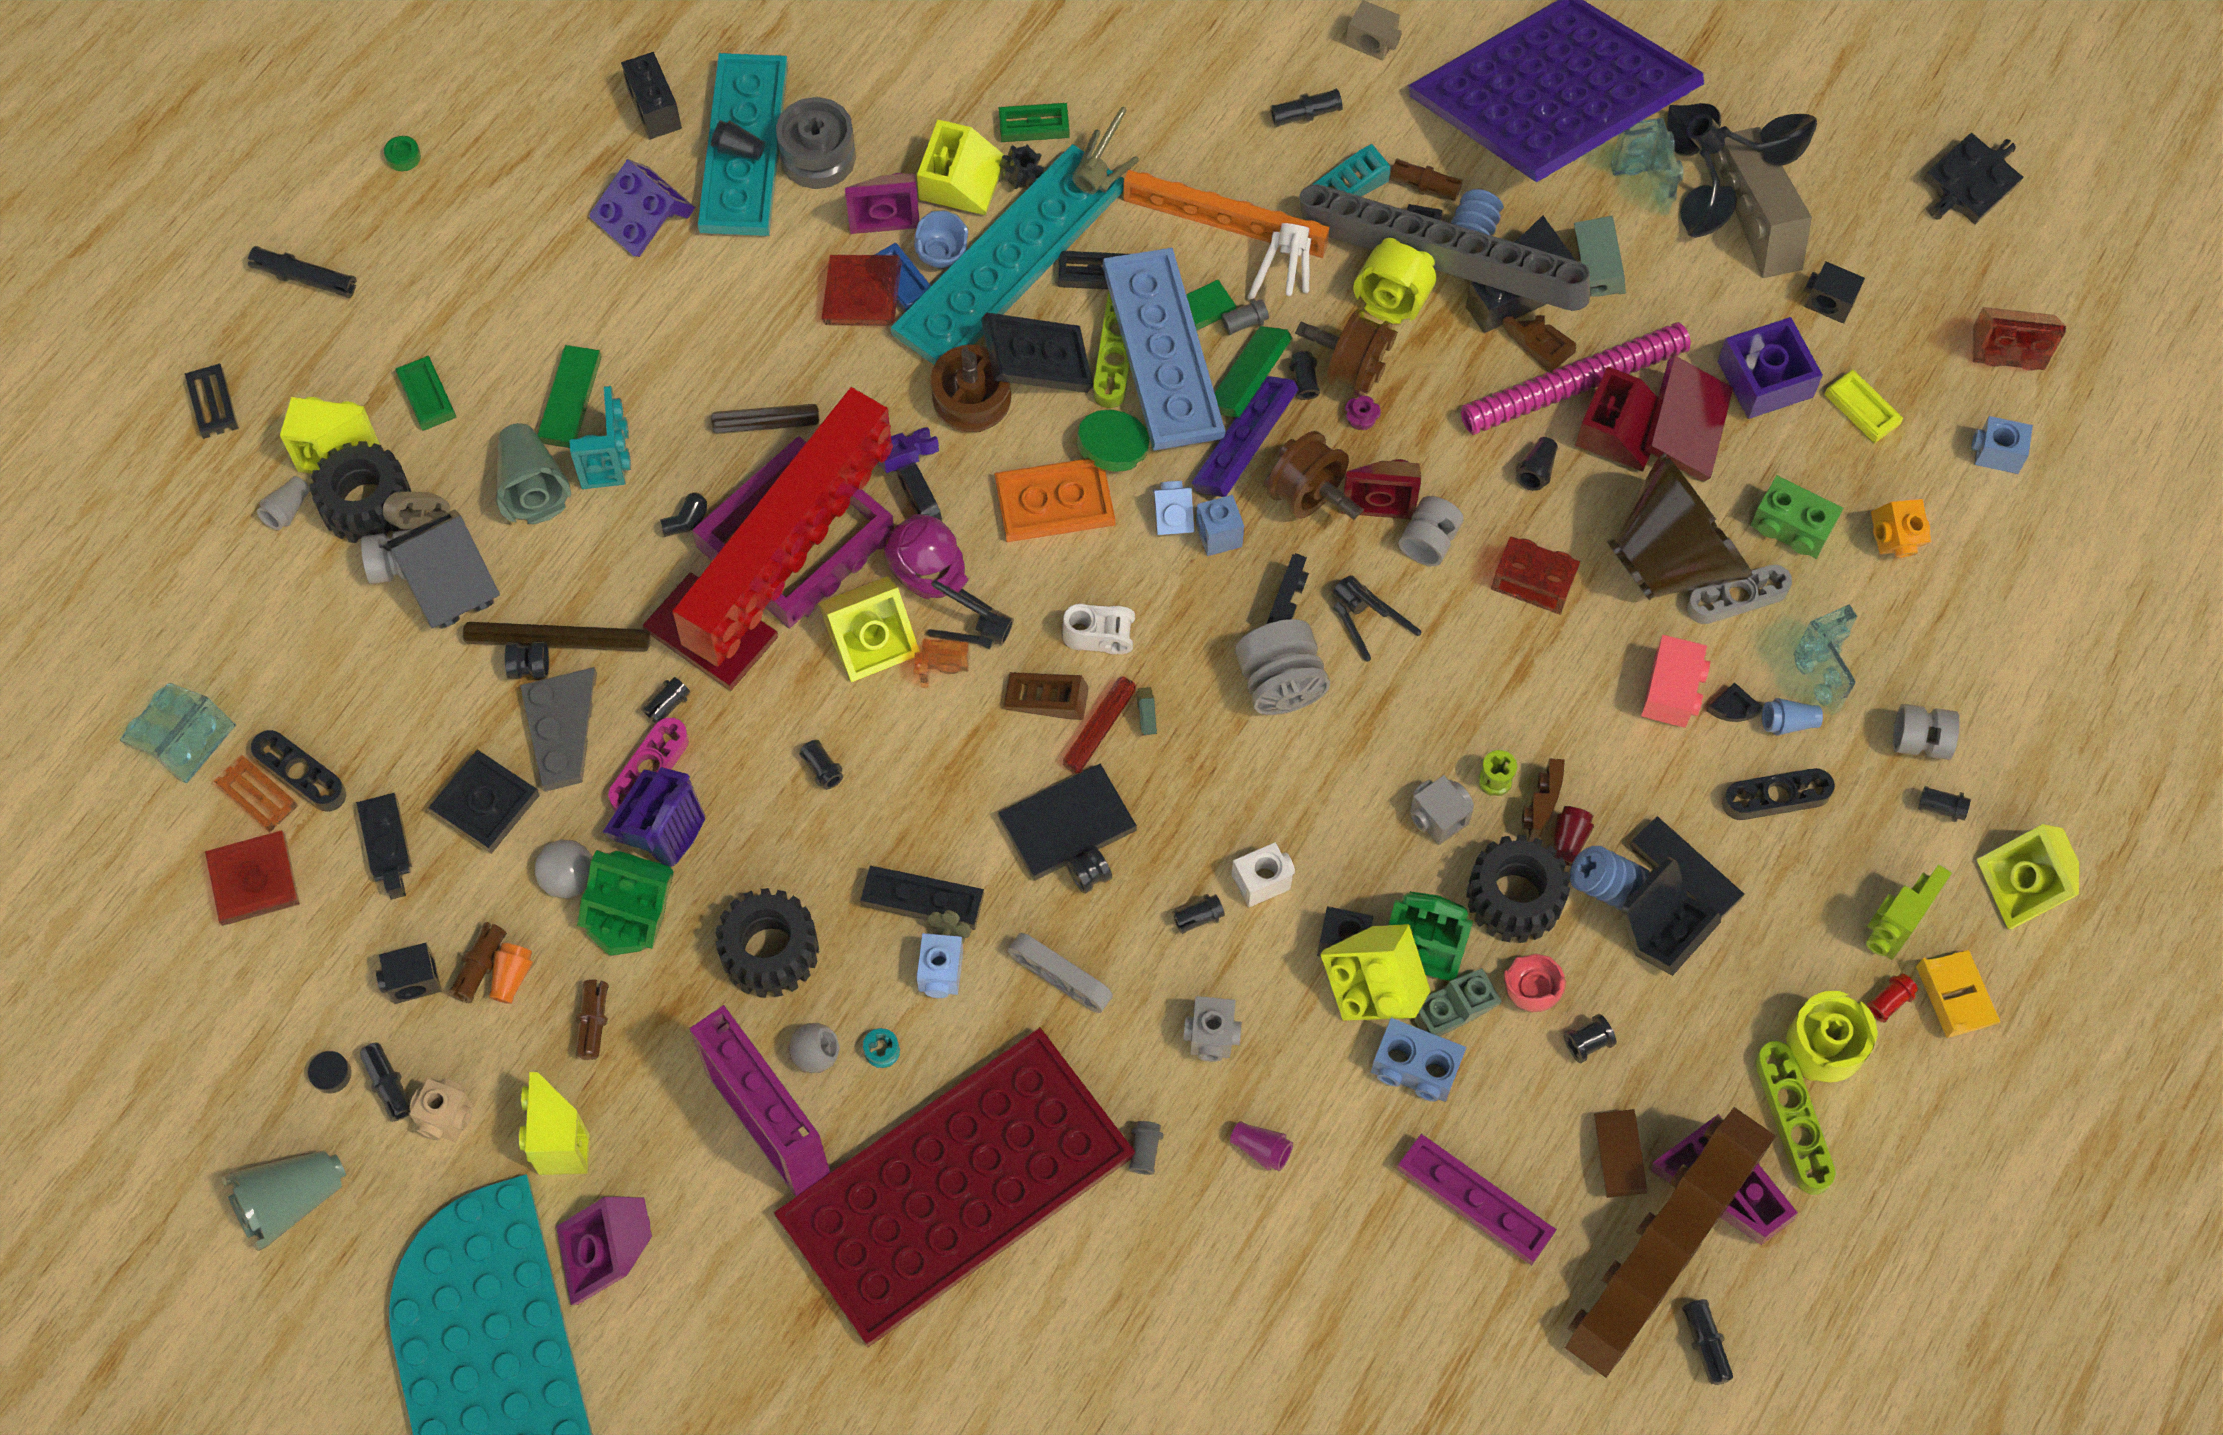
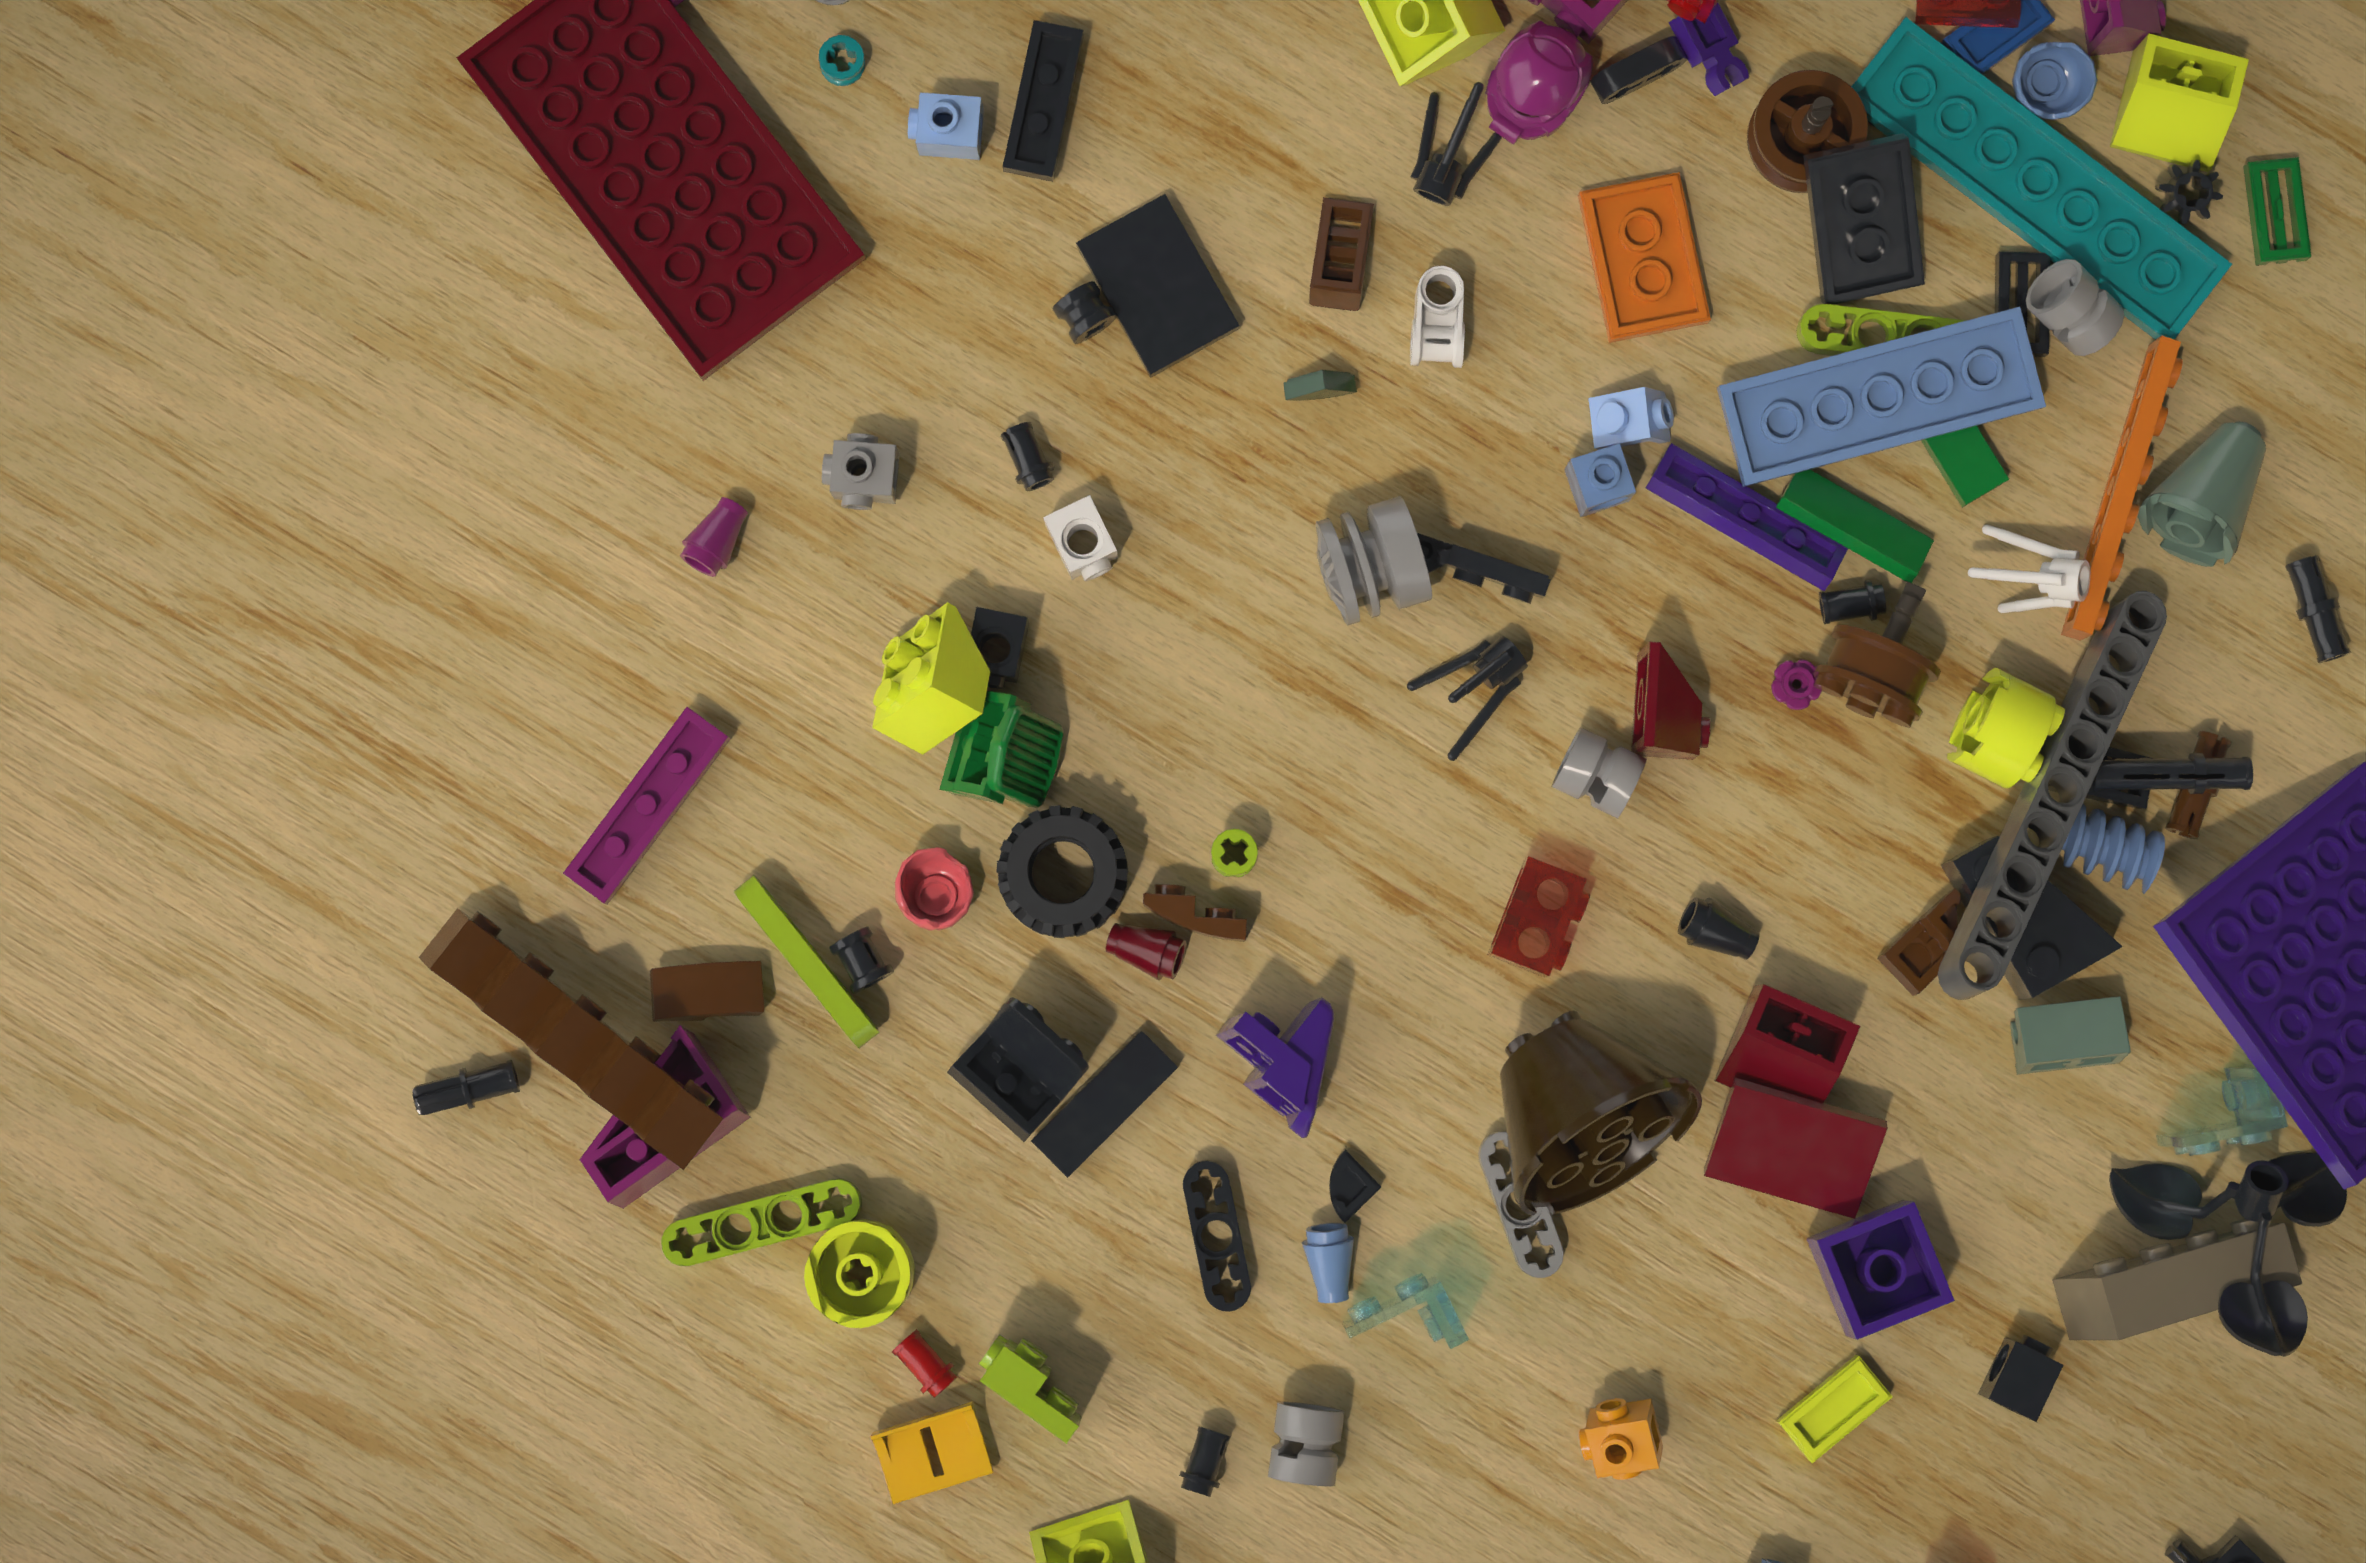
camera: 90 degrees right, 20 degrees up
(942, 655) = (1388, 117): clear orange bracket -> none
(948, 925) = (998, 134): olive plant -> none
(1060, 973) = (941, 279): light grey beam -> none
(1091, 171) = (2174, 286): olive plant -> none
(1099, 725) = (1299, 324): clear red axle -> none
(1102, 230) = (2074, 307): none -> light grey wheel
(1113, 440) = (1734, 332): green tile -> none
(1145, 1145) = (711, 391): dark grey pin -> none
(1233, 160) = (2207, 496): none -> sand green cone
(1245, 316) = (1947, 518): dark grey pin -> none
(1310, 476) = (1673, 600): reddish brown wheel -> none
(1368, 163) = (2219, 677): teal slope -> none
(1422, 174) = (2189, 773): none -> black pin
(1422, 1050) = (839, 739): medium blue brick -> none
(1441, 808) = (1181, 775): light grey brick -> none
(1457, 1003) = (909, 790): sand green slope -> none
(1574, 378) = (1861, 992): dark pink piece -> none
(1592, 1079) = (806, 961): none -> lime beam
(1606, 875) = (1073, 990): medium blue piece -> none
(1650, 733) = (1287, 1067): none -> dark purple piece
(1675, 681) = (1373, 1101): coral brick -> none
(1796, 517) = (1639, 1291): bright green brick -> none

